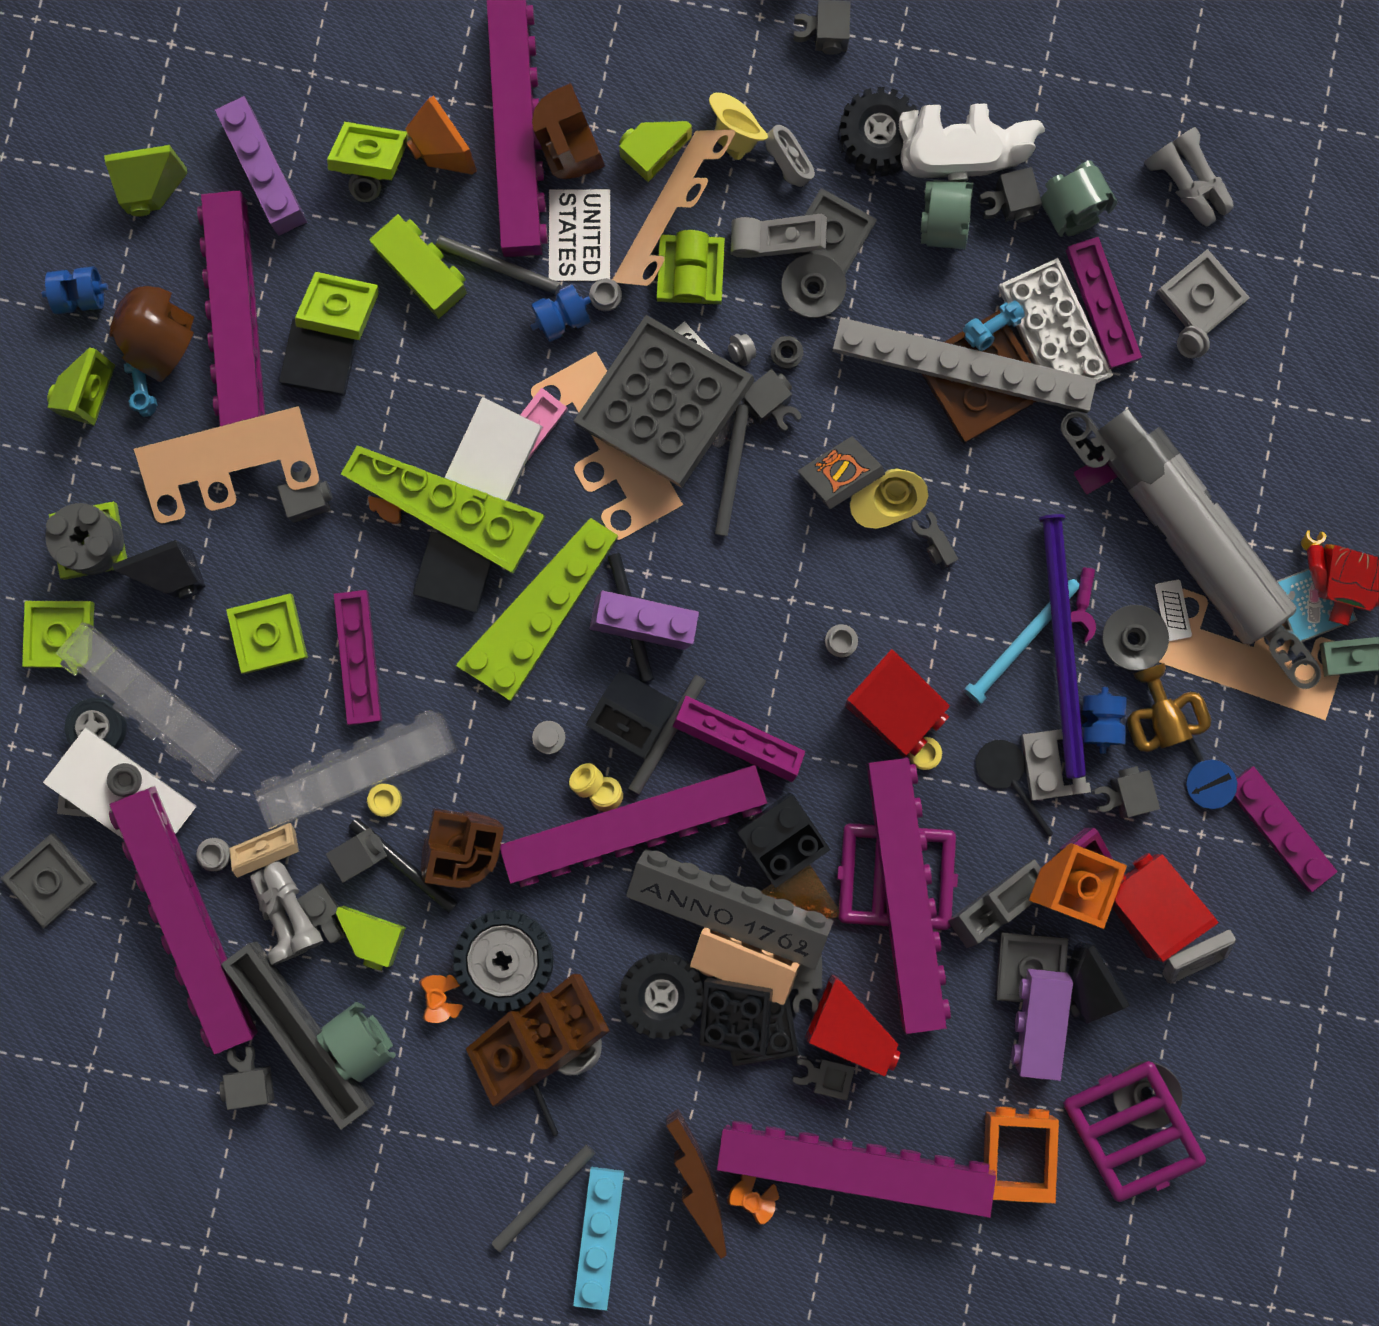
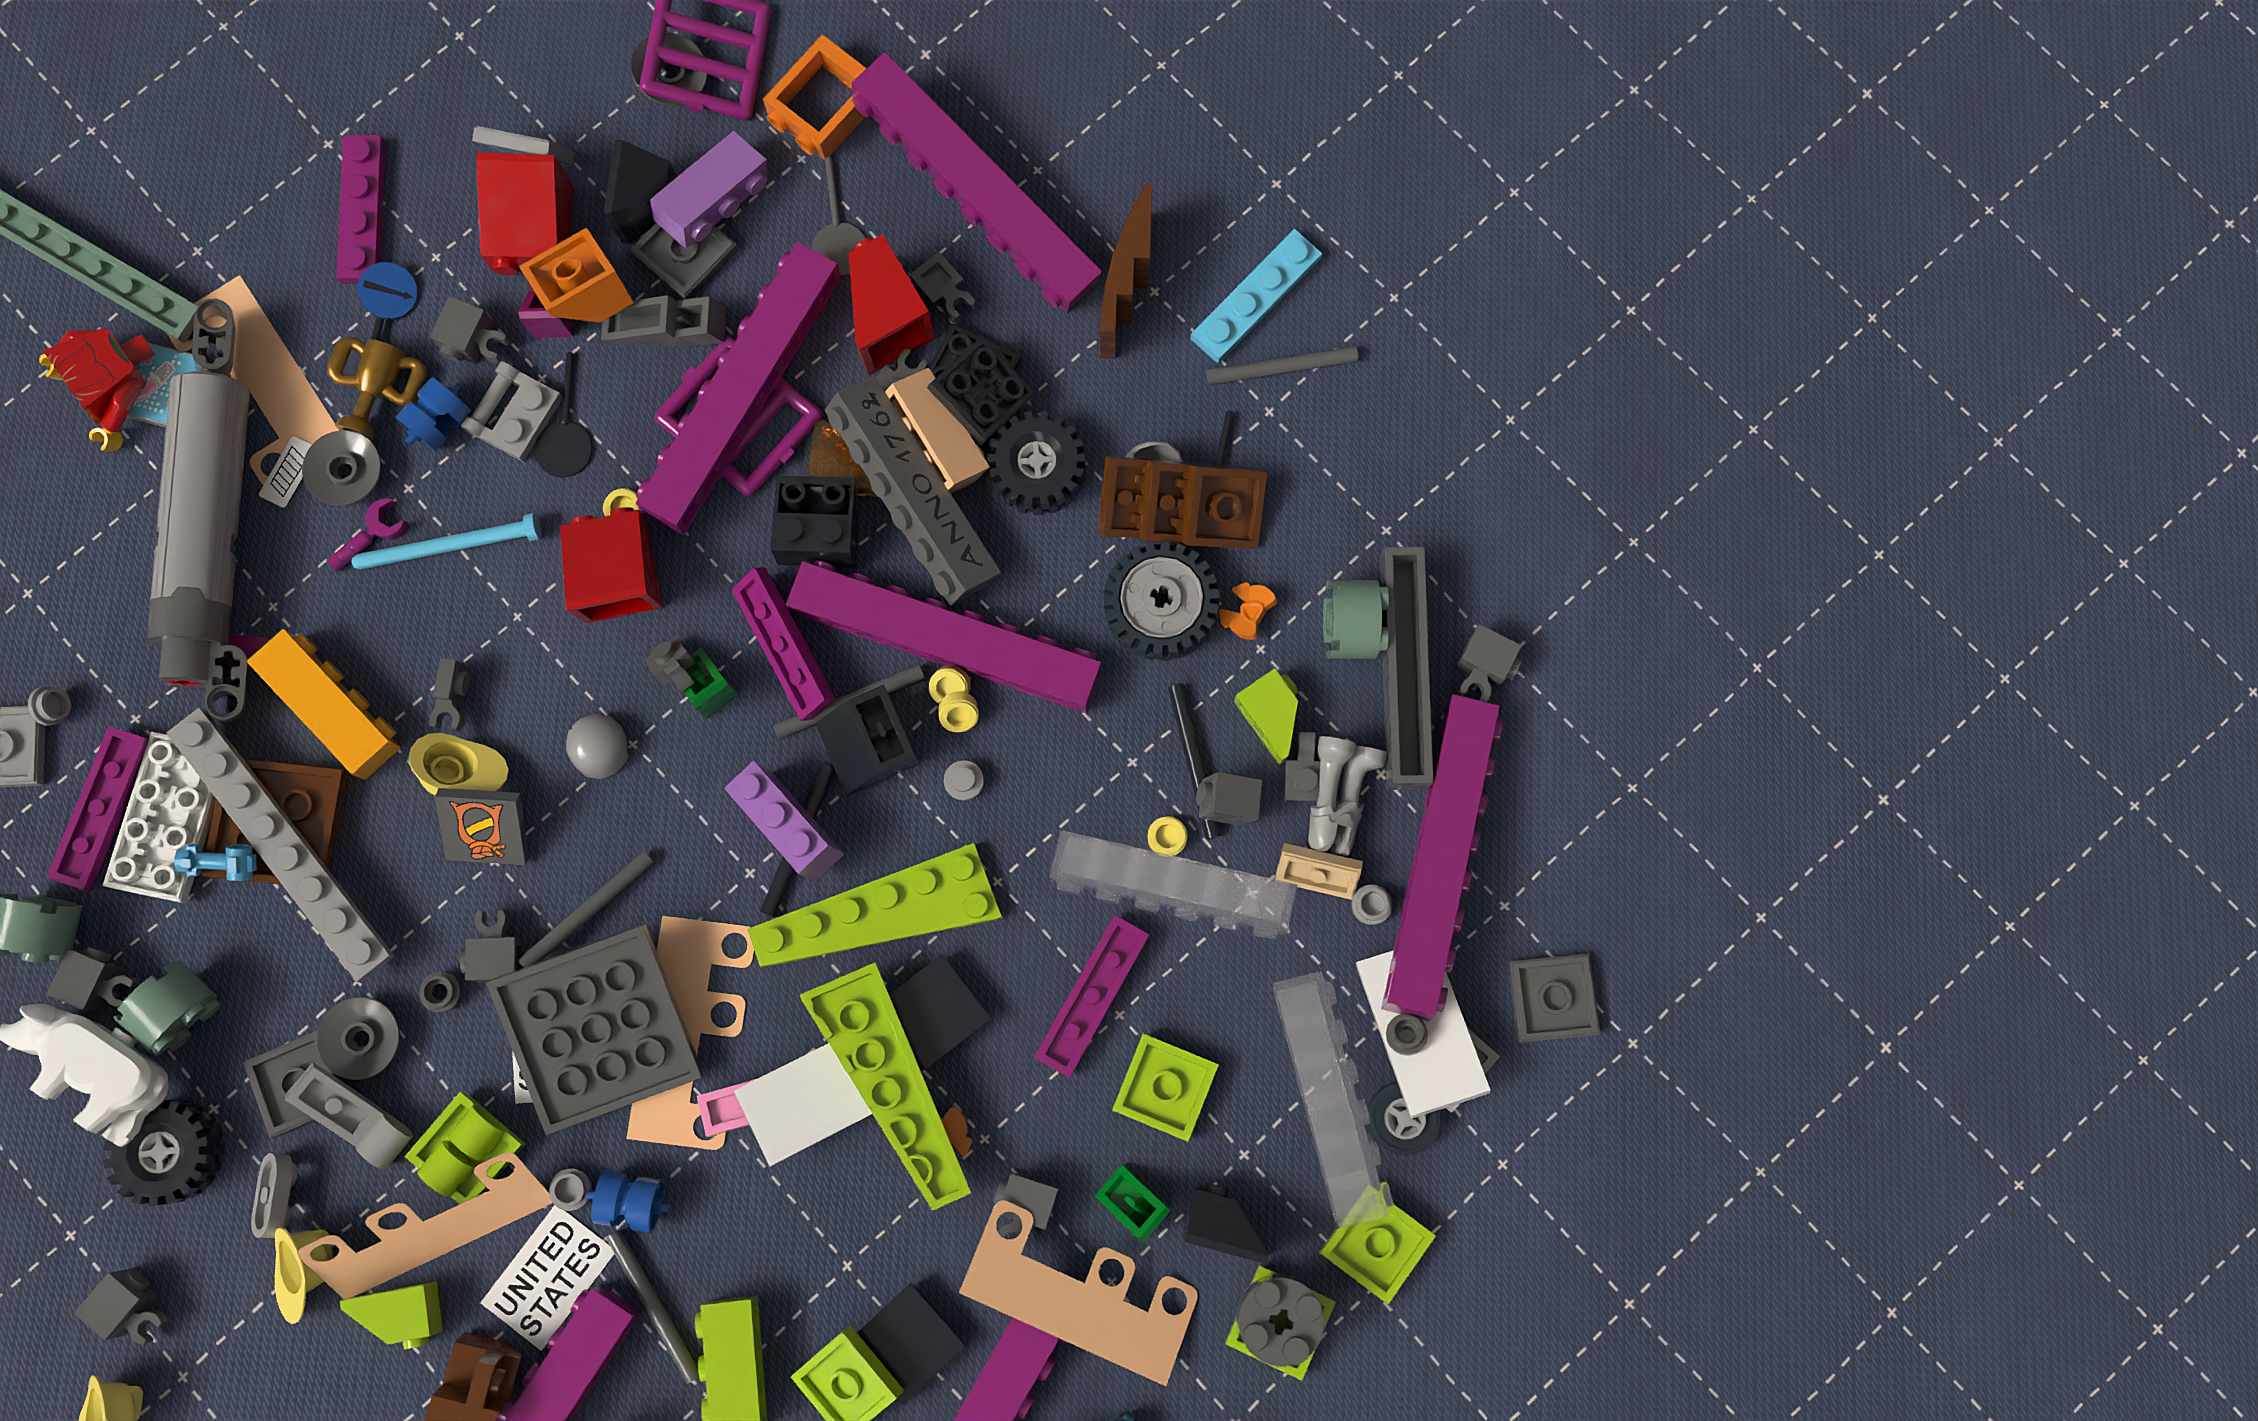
camera: 145 degrees left, 5 degrees down
(233, 545) = (1132, 1203): none -> green slope
(460, 848) = (1124, 731): reddish brown brick -> none
(741, 349) = (480, 1027): light grey plate -> none
(760, 1206) = (1088, 221): orange piece -> none
(775, 674) = (710, 686): none -> green slope
(804, 669) = (670, 662): none -> dark grey plate
(812, 581) = (597, 746): none -> light grey hair
(841, 640) = (615, 668): light grey plate -> none
(925, 1055) = (838, 238): none -> dark grey piece
(1013, 475) = (324, 704): none -> light orange brick
(1064, 645) = (410, 509): dark purple axle -> none

